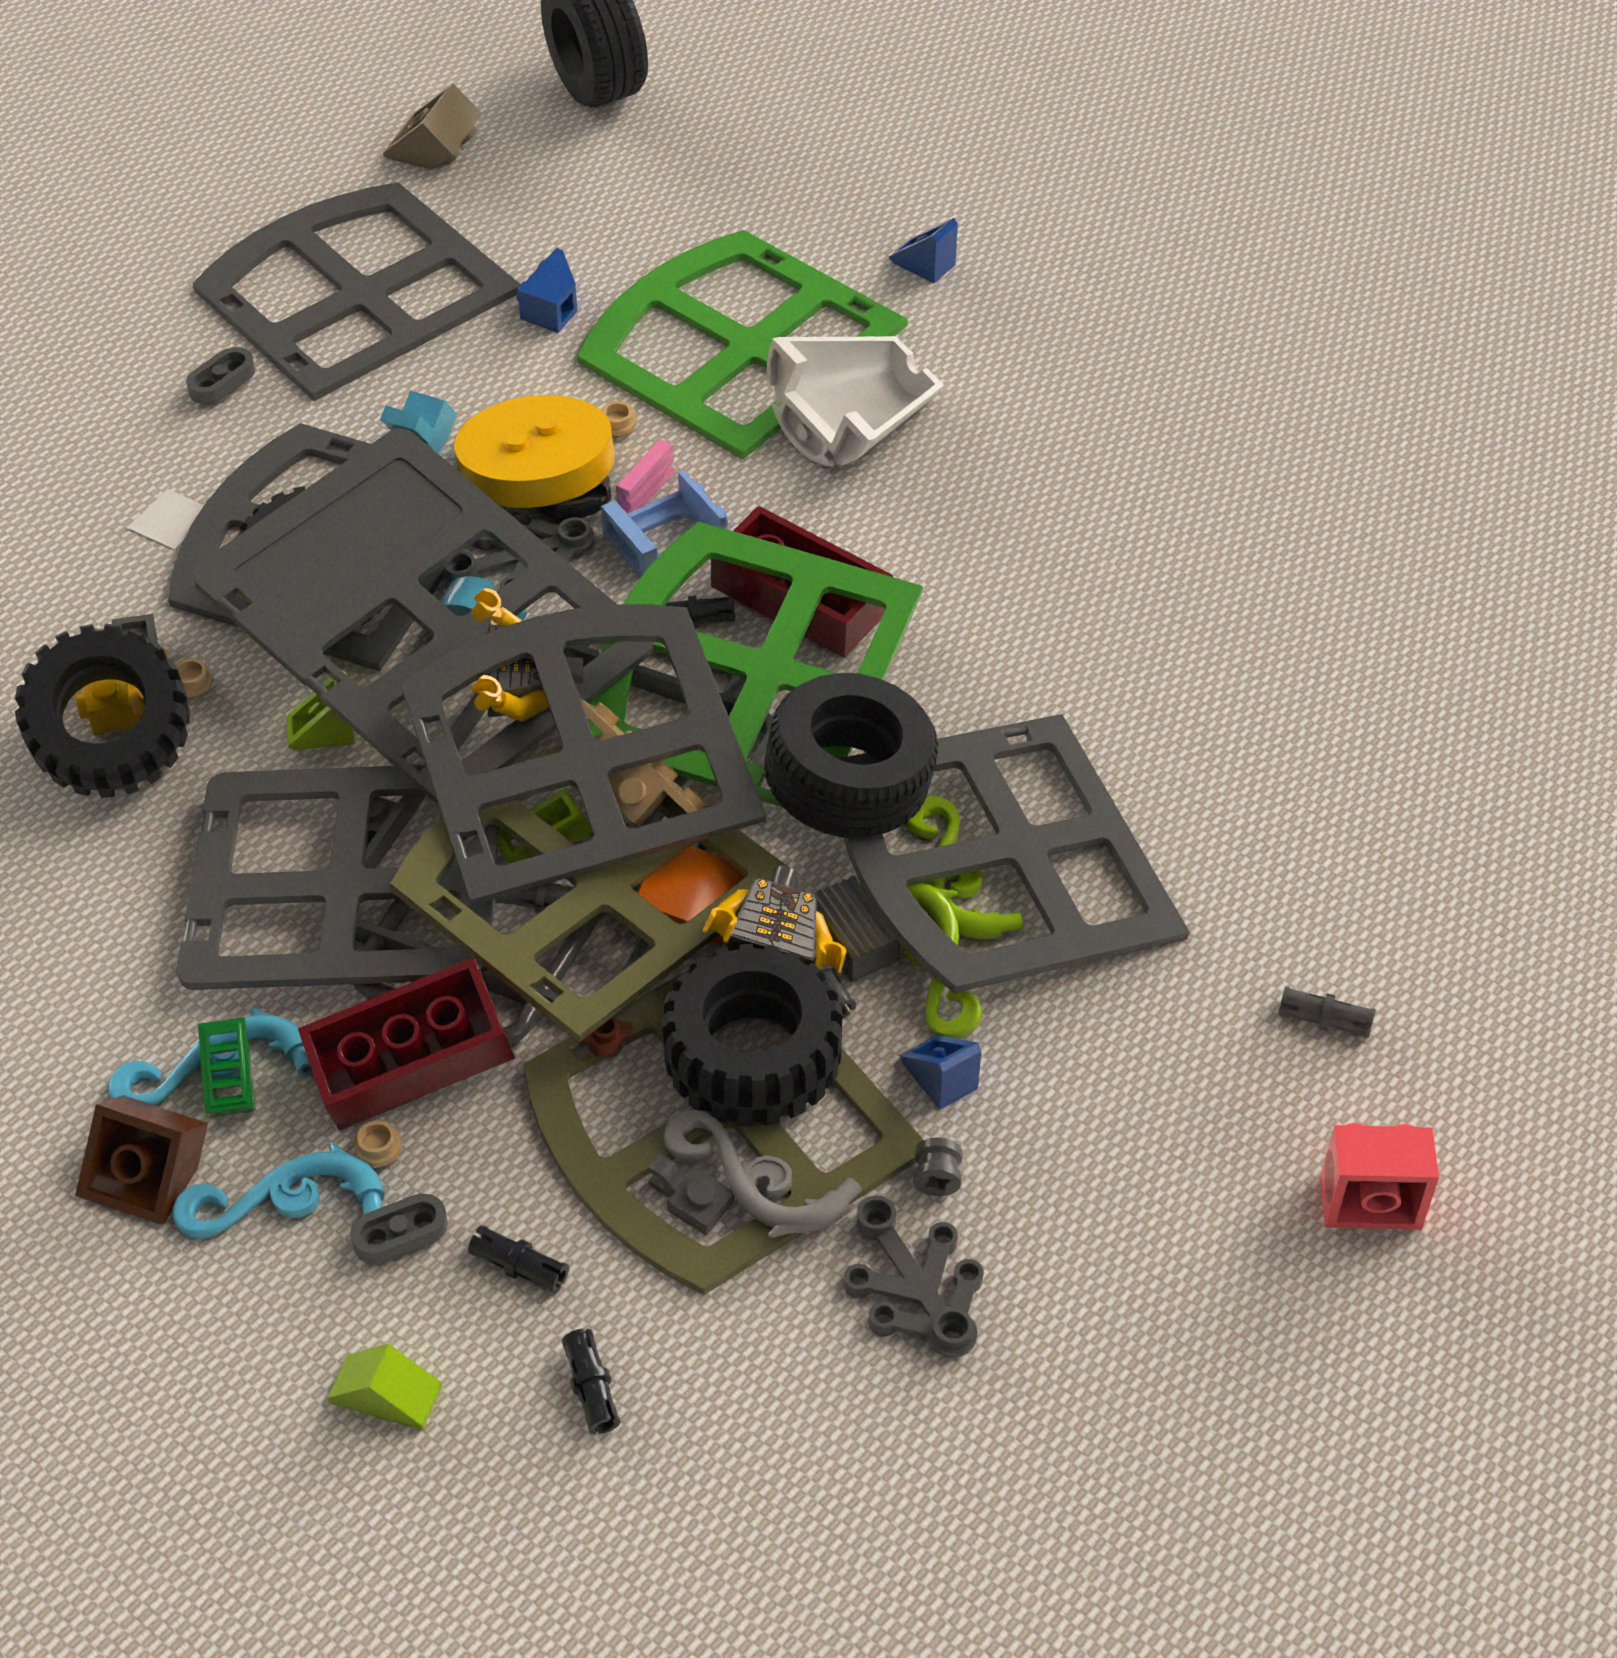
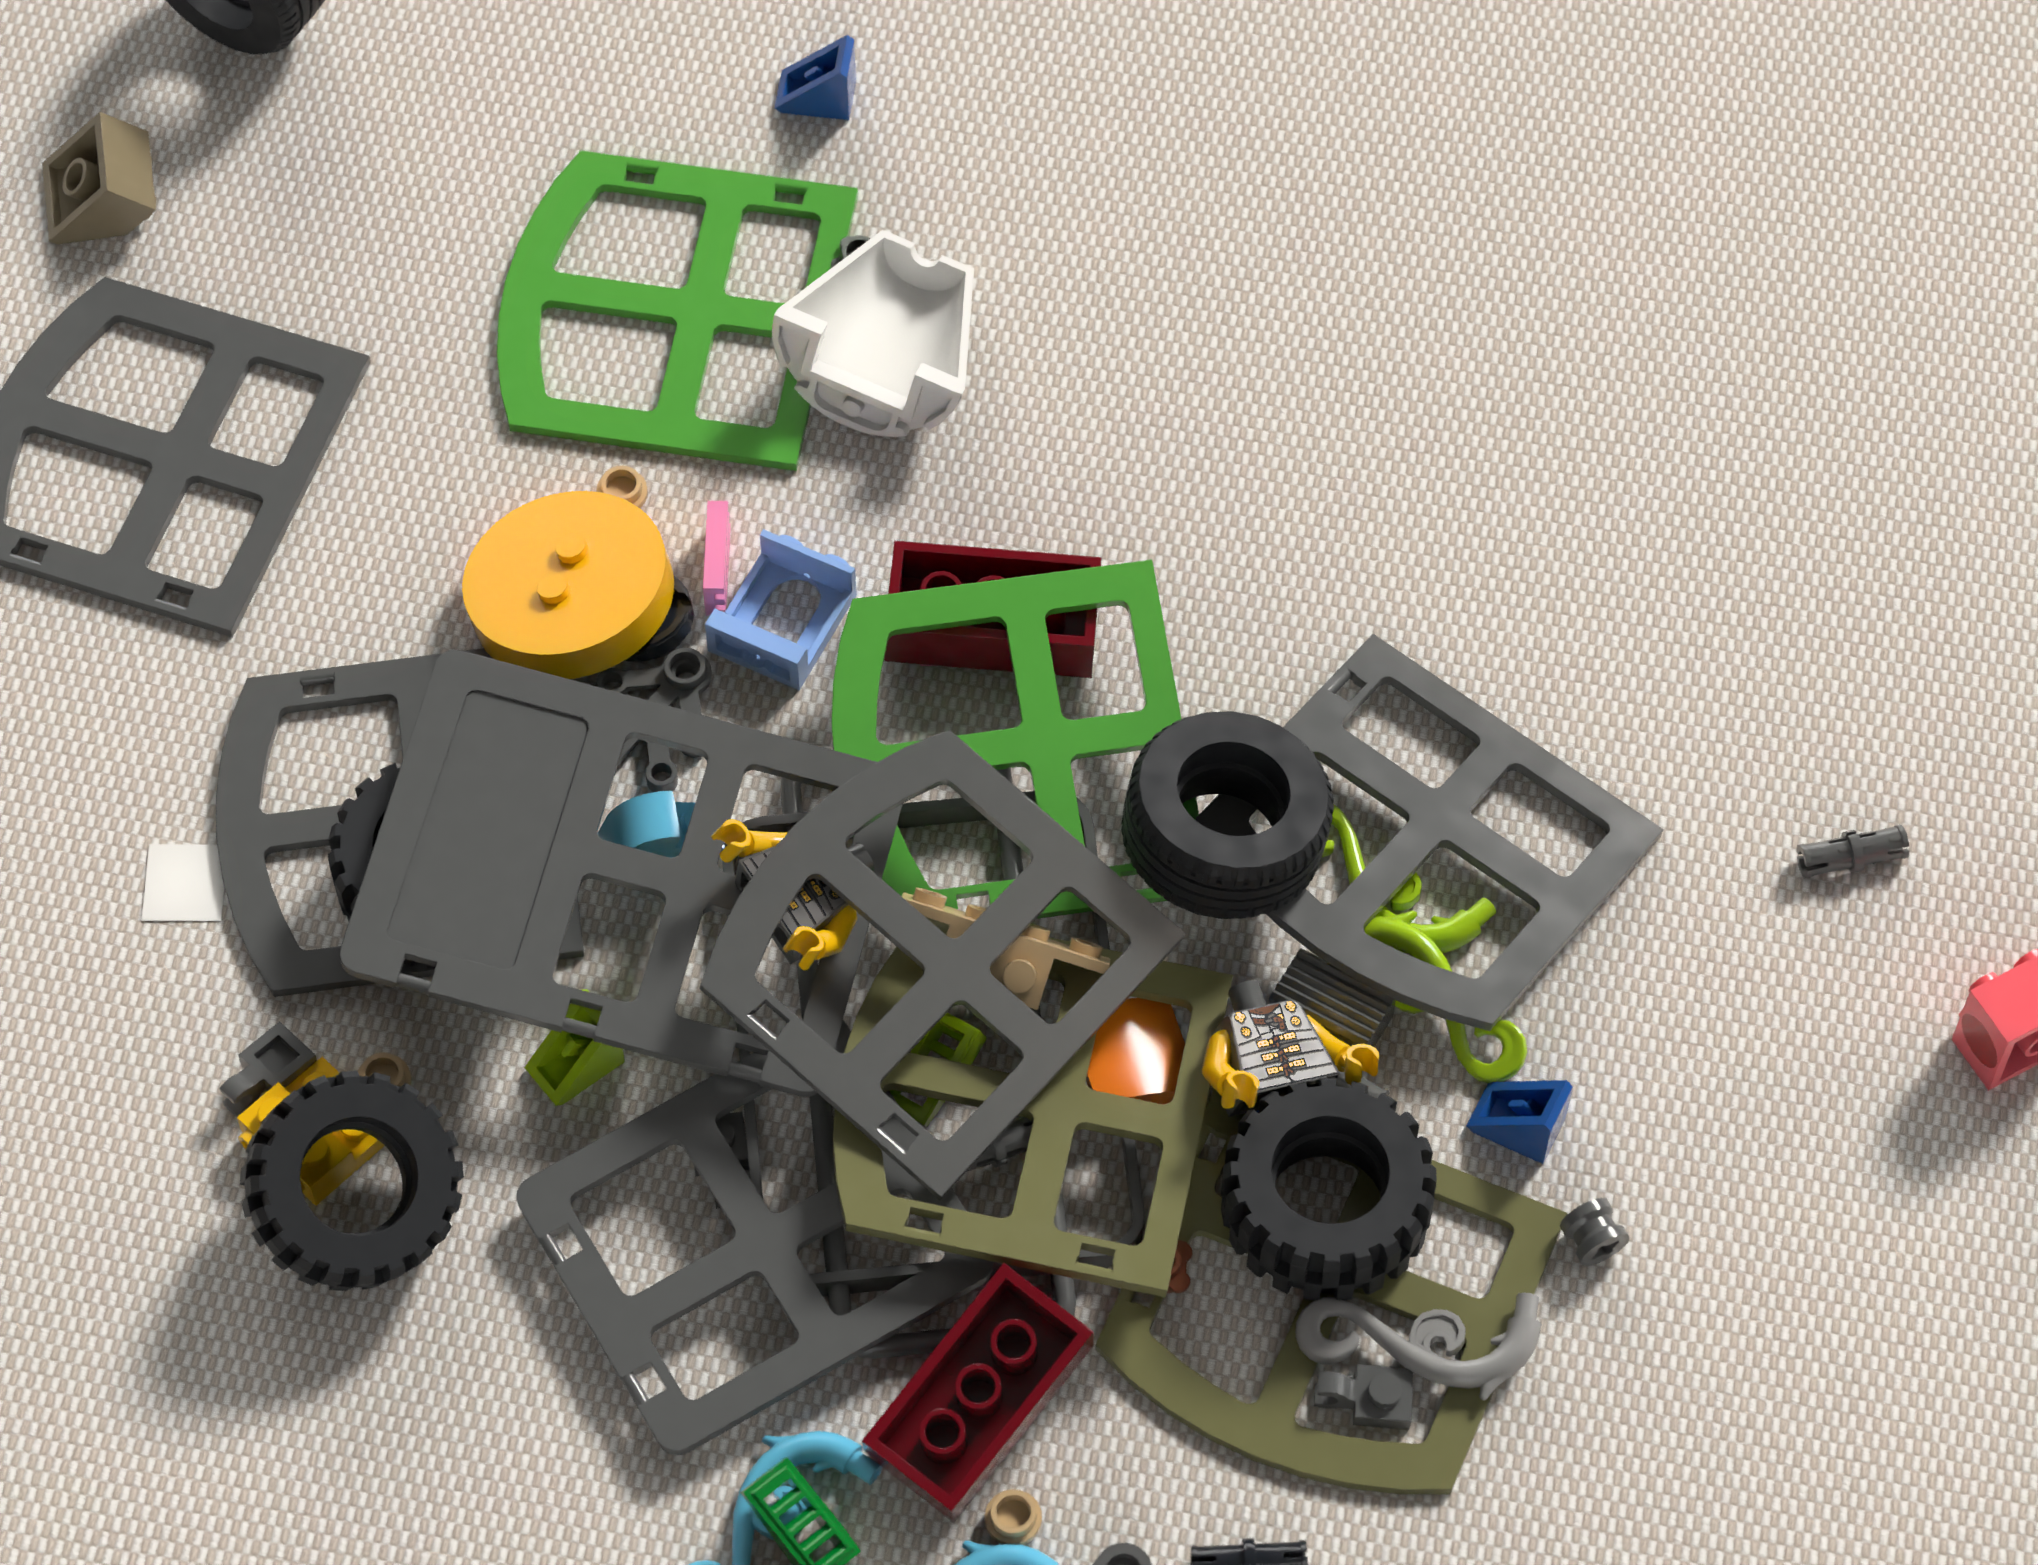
camera: 30 degrees left, 10 degrees up
(220, 375) = (101, 665): dark grey plate -> none
(425, 417) = (405, 617): medium azure brick -> none
(549, 294) = (421, 353): blue slope -> none
(708, 610) = (905, 694): black pin -> none
(916, 1284) = (1653, 1367): dark grey plant -> none

